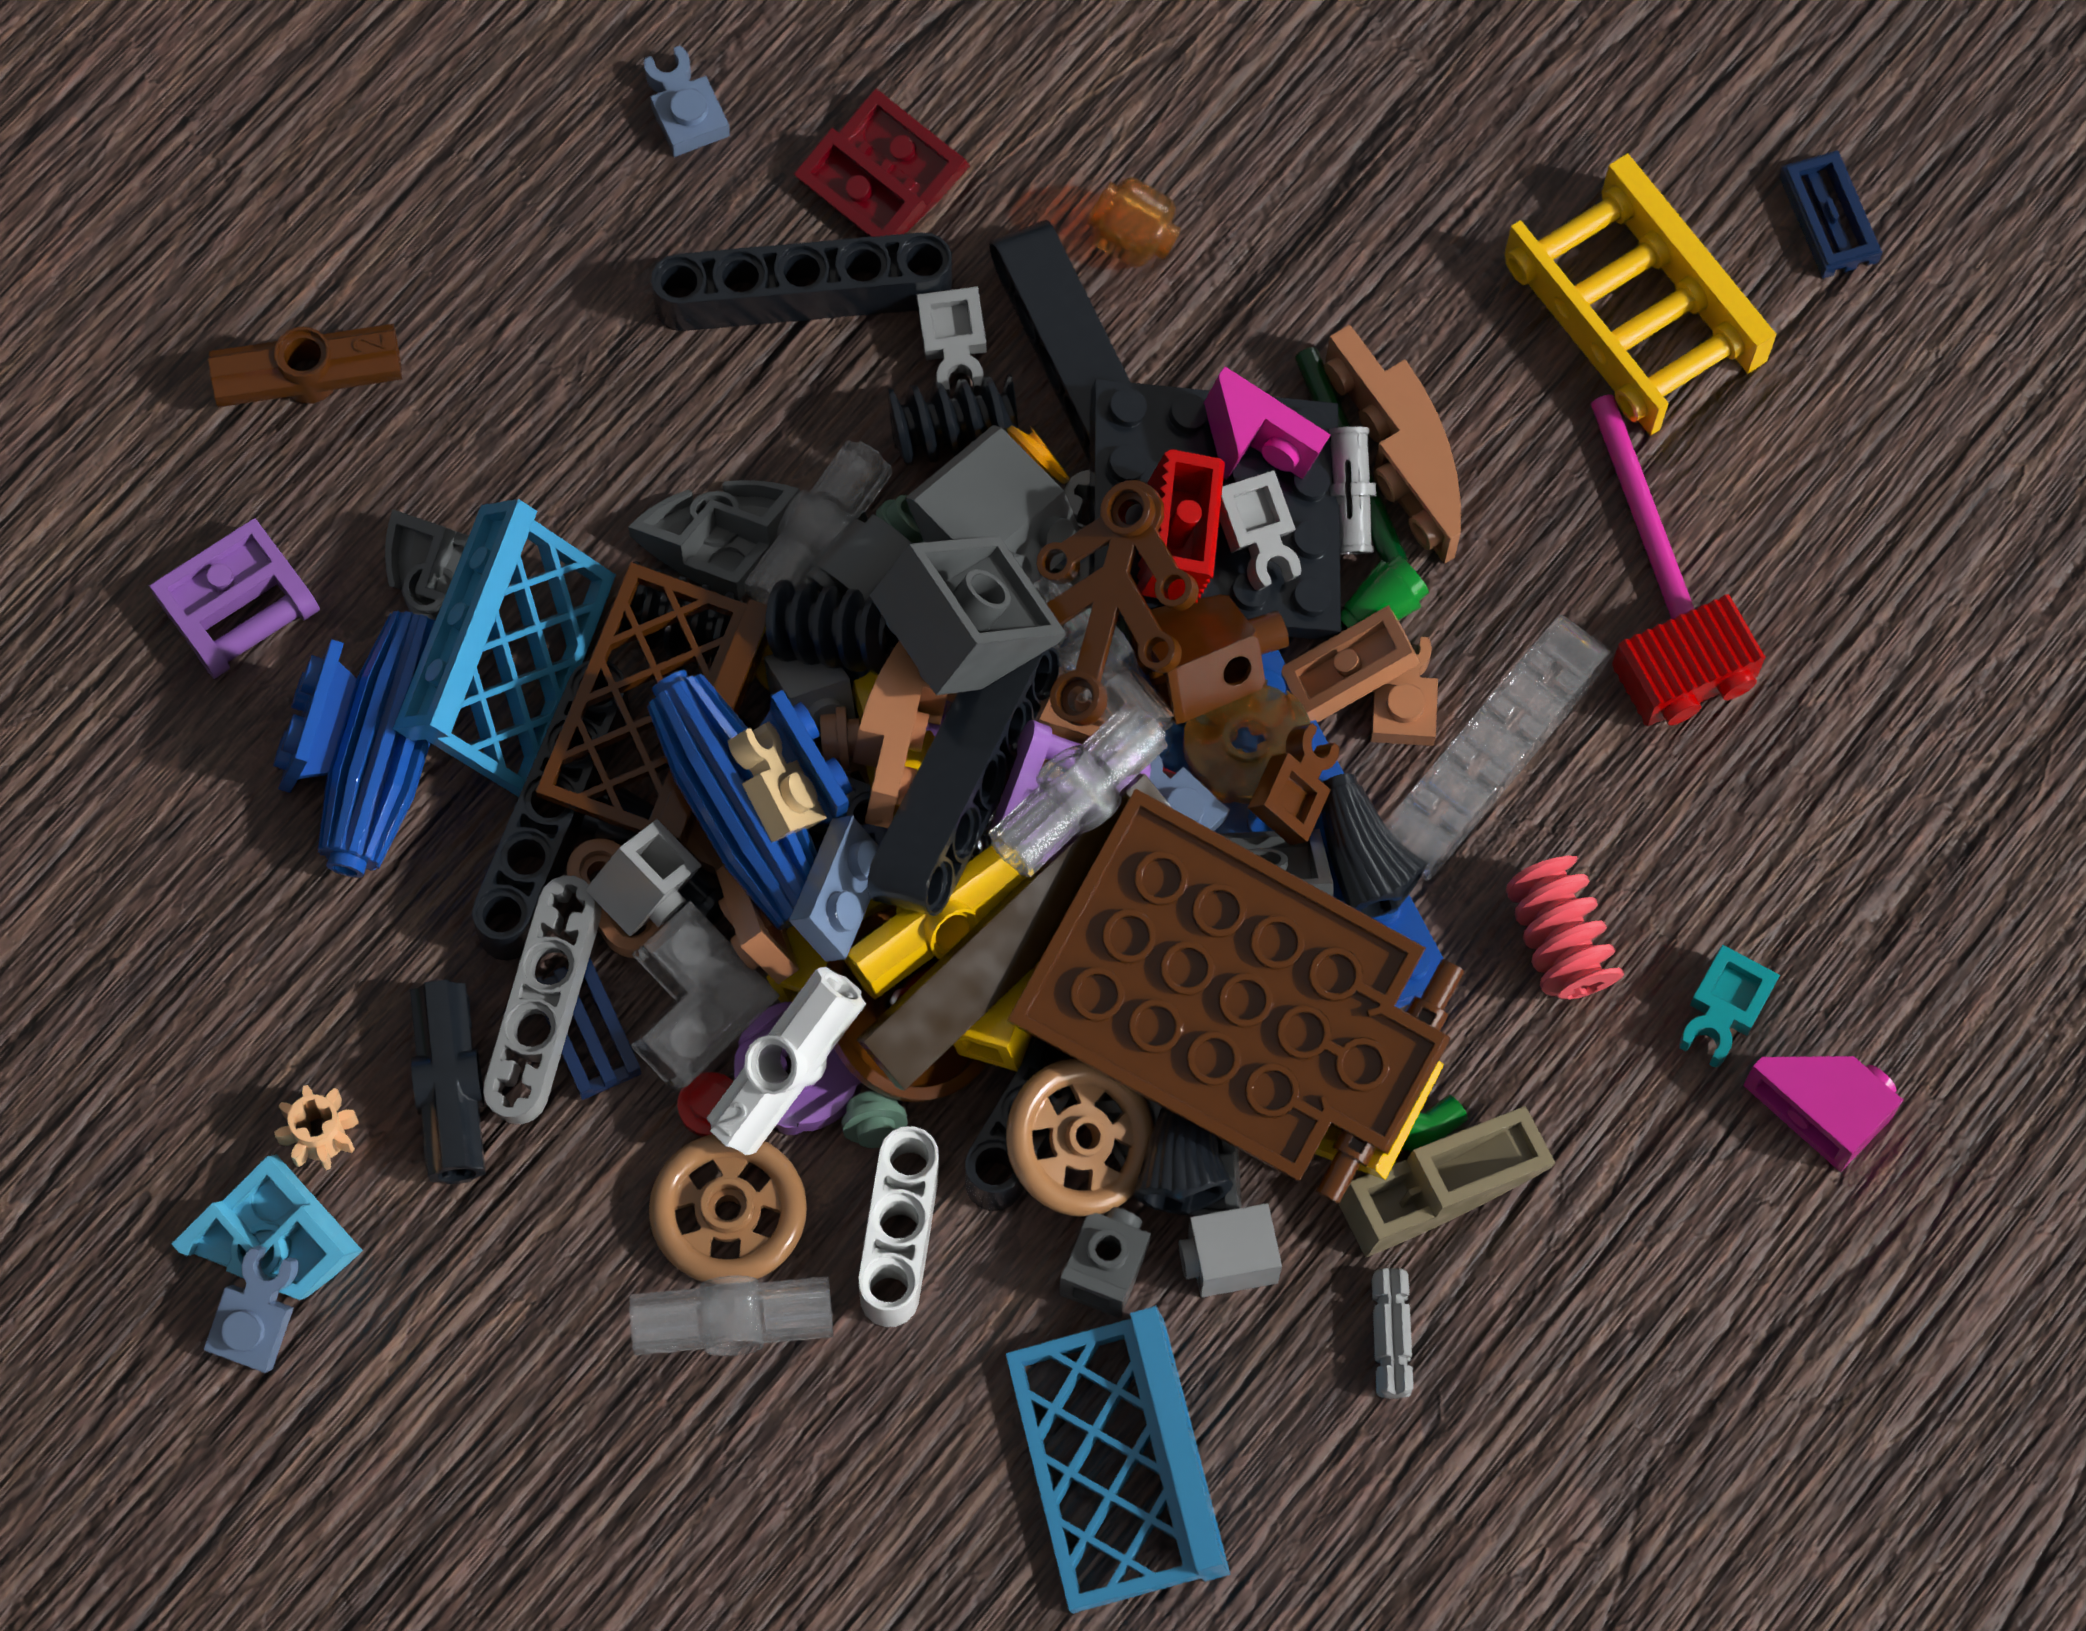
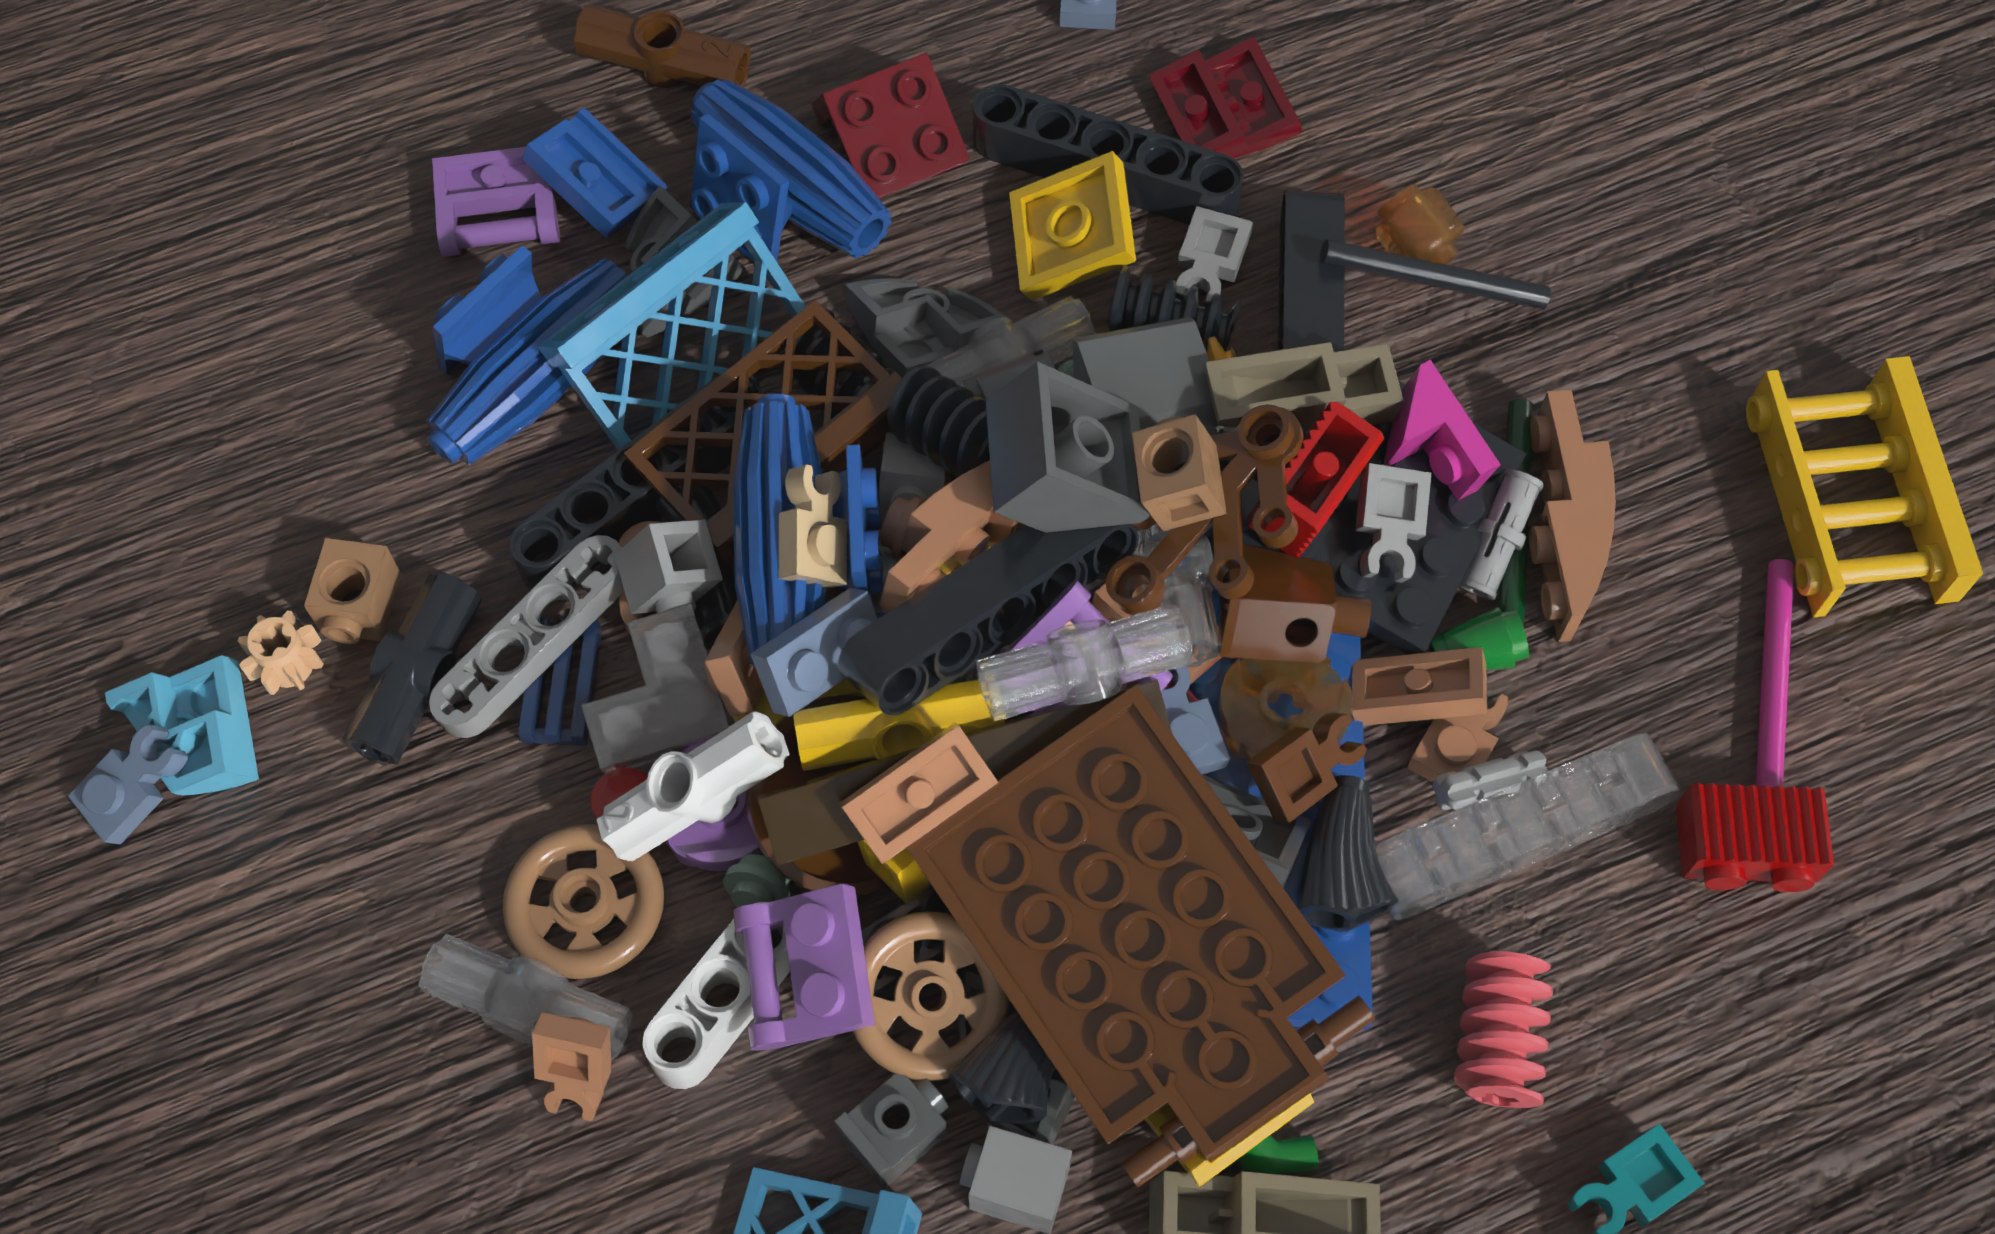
camera: 30 degrees right, 5 degrees down
(321, 526) = (593, 171): none -> blue plate
(343, 1014) = (347, 568): none -> medium nougat brick
(499, 444) = (781, 170): none -> blue plate
(579, 341) = (894, 126): none -> dark red bracket
(812, 370) = (1072, 226): none -> yellow plate
(813, 1341) = (574, 1059): none -> nougat plate
(984, 1152) = (823, 961): none -> medium lavender plate
(998, 968) = (918, 792): none -> nougat plate
(1090, 597) = (1188, 493): none -> medium nougat brick
(1127, 442) = (1306, 382): none -> dark tan slope
(1171, 263) = (1434, 274): none -> black bar
(1448, 720) = (1485, 779): none -> light grey axle

